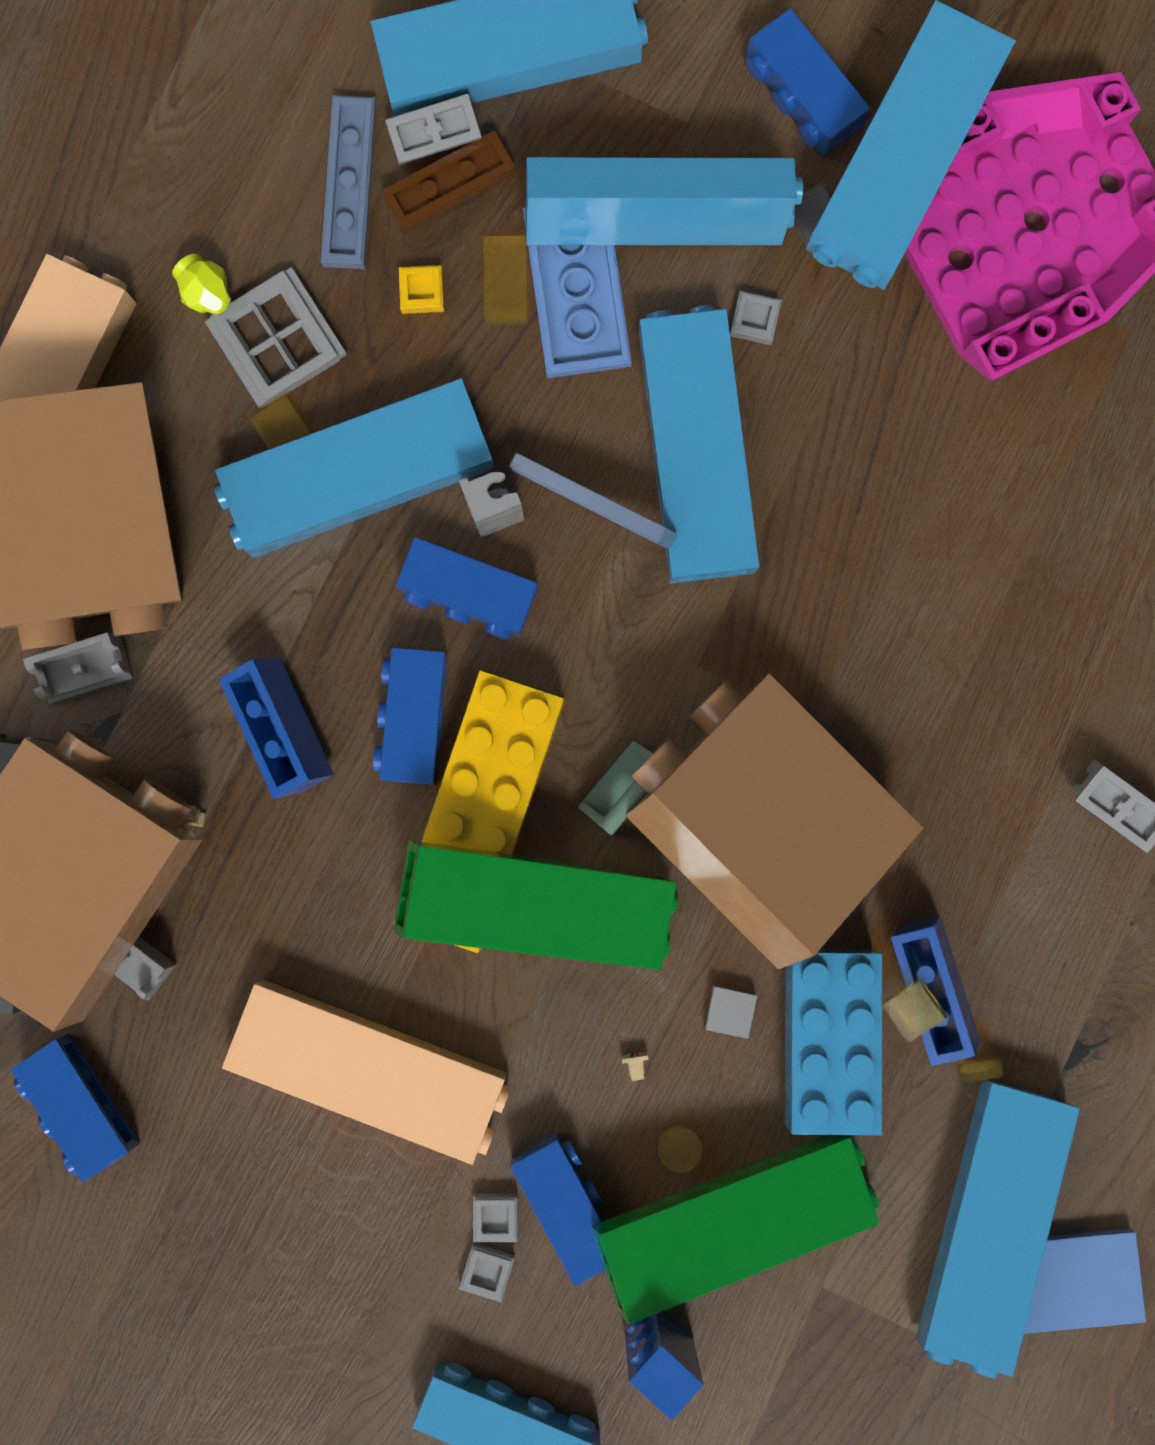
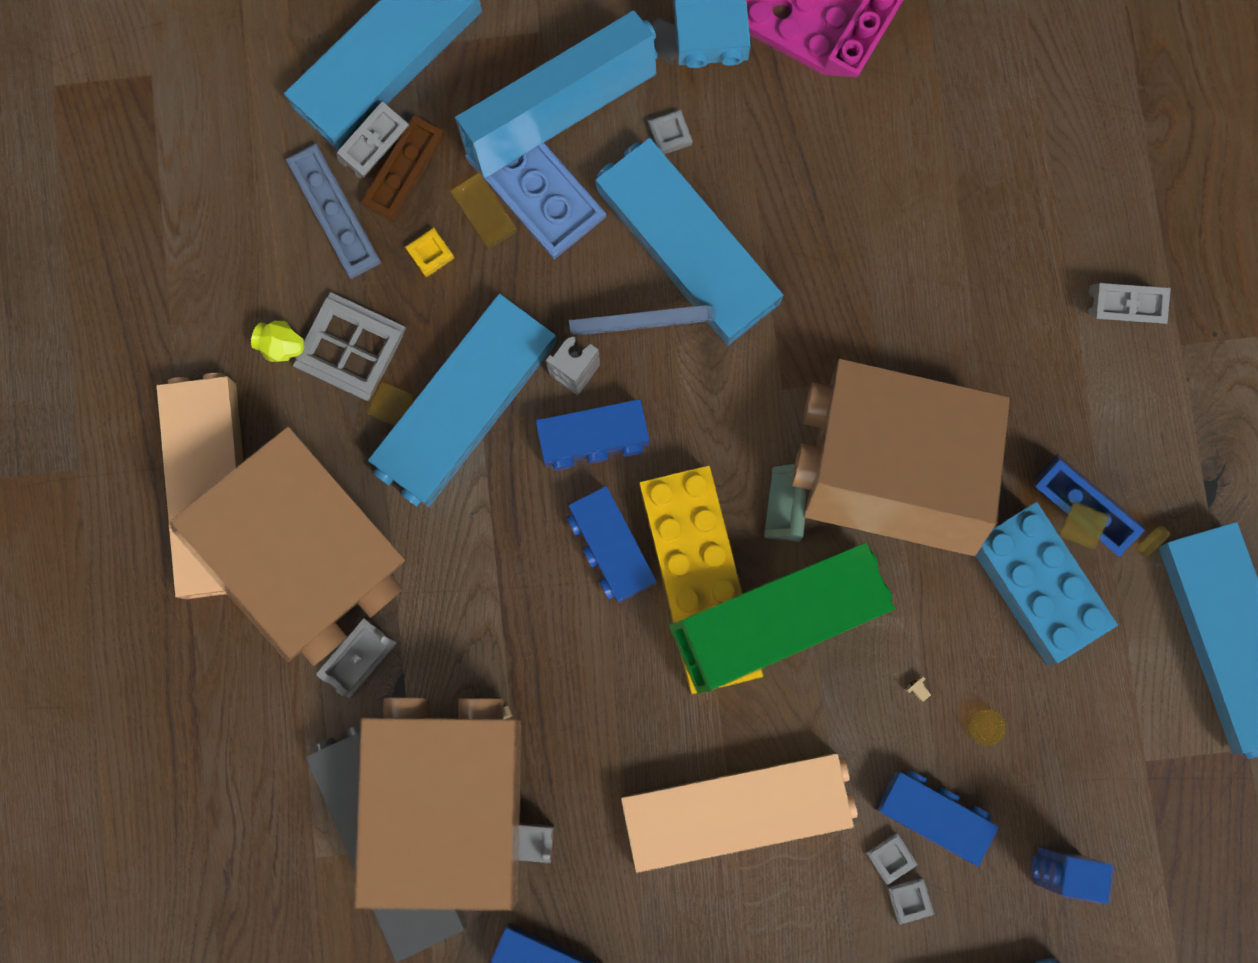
camera: 30 degrees left, 5 degrees down
(276, 727) = (522, 611): blue brick -> none
(730, 1012) = (959, 610): light grey tile -> none
(736, 1226) = (1060, 752): green brick -> none

